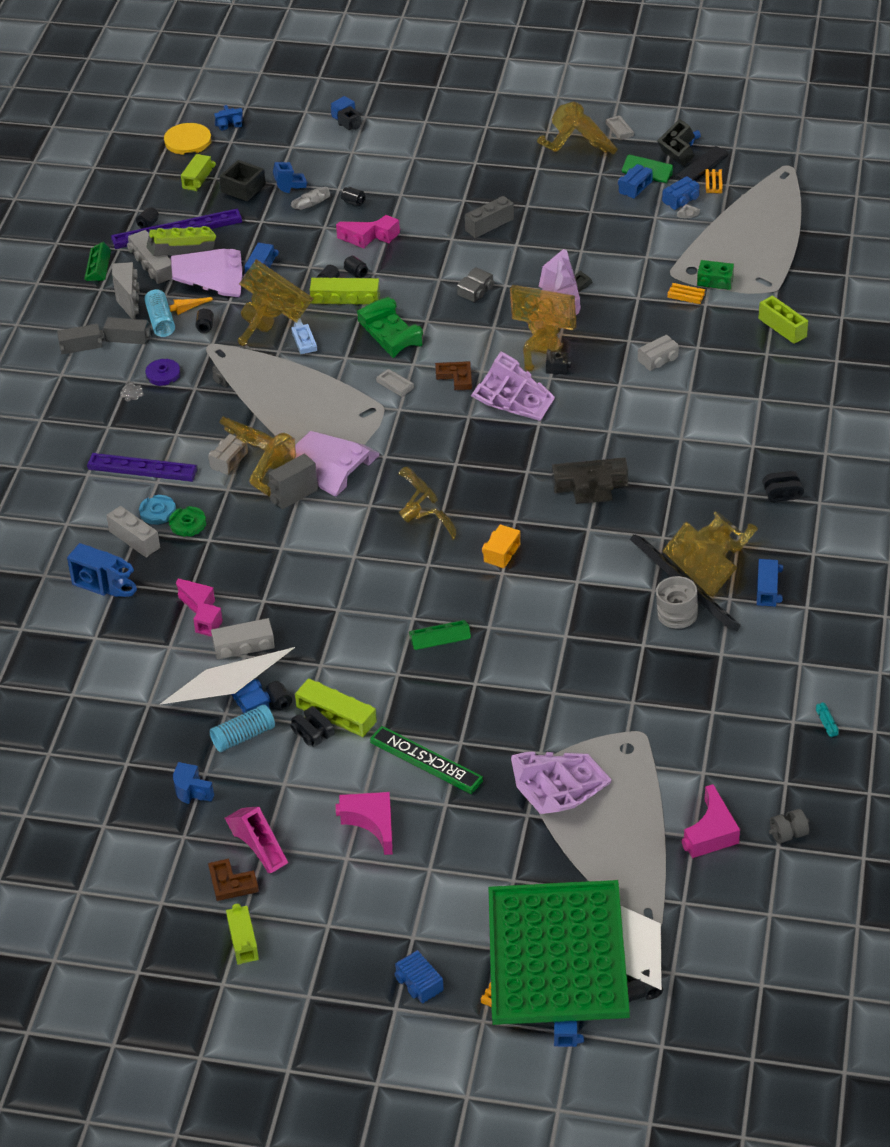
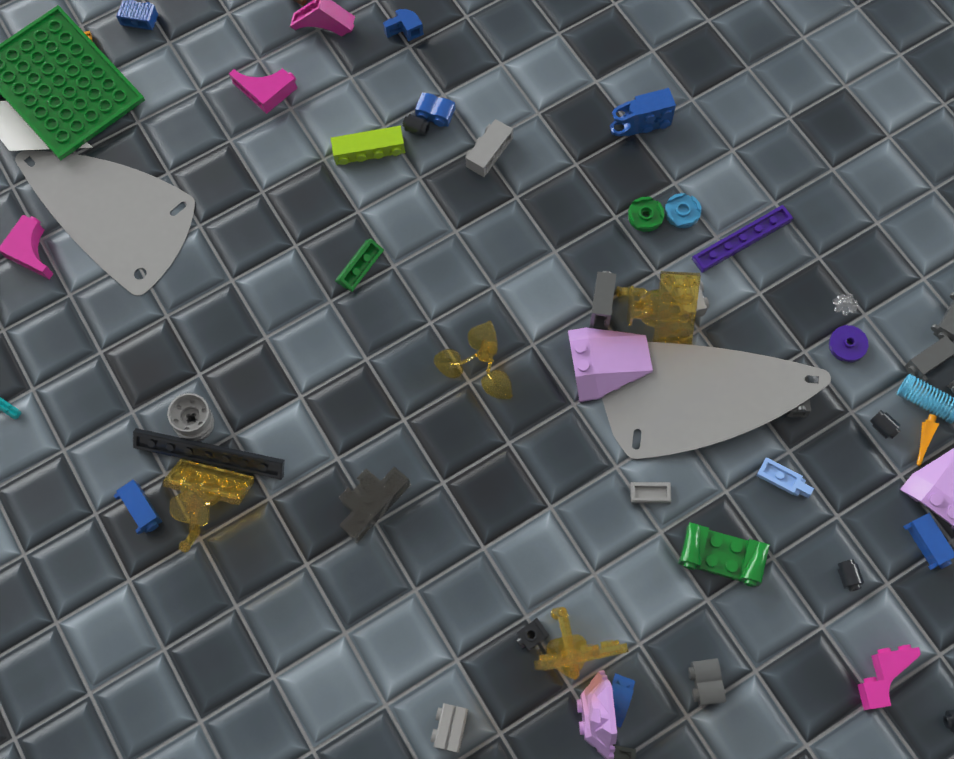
camera: 140 degrees right, 25 degrees up
(133, 531) = (670, 170): light grey brick -> none
(200, 600) = (556, 154): dark pink arch -> none
(219, 738) = (412, 82): medium azure piece -> none
(225, 678) = (464, 109): white sticker -> none
(270, 298) = (844, 468): clear yellow plate -> none
(312, 726) = (368, 118): black brick -> none
(344, 290) = (813, 567): lime brick -> none
(355, 267) = (841, 611): black brick -> none
(426, 760) = (271, 158): tile -> none
(455, 370) = (604, 548): reddish brown plate -> none
(501, 542) = (384, 376): light orange piece -> none
(513, 389) = (534, 555): lavender wedge -> none
(557, 781) = (154, 201): lavender wedge -> none
(783, 486) = (214, 633): black brick -> none

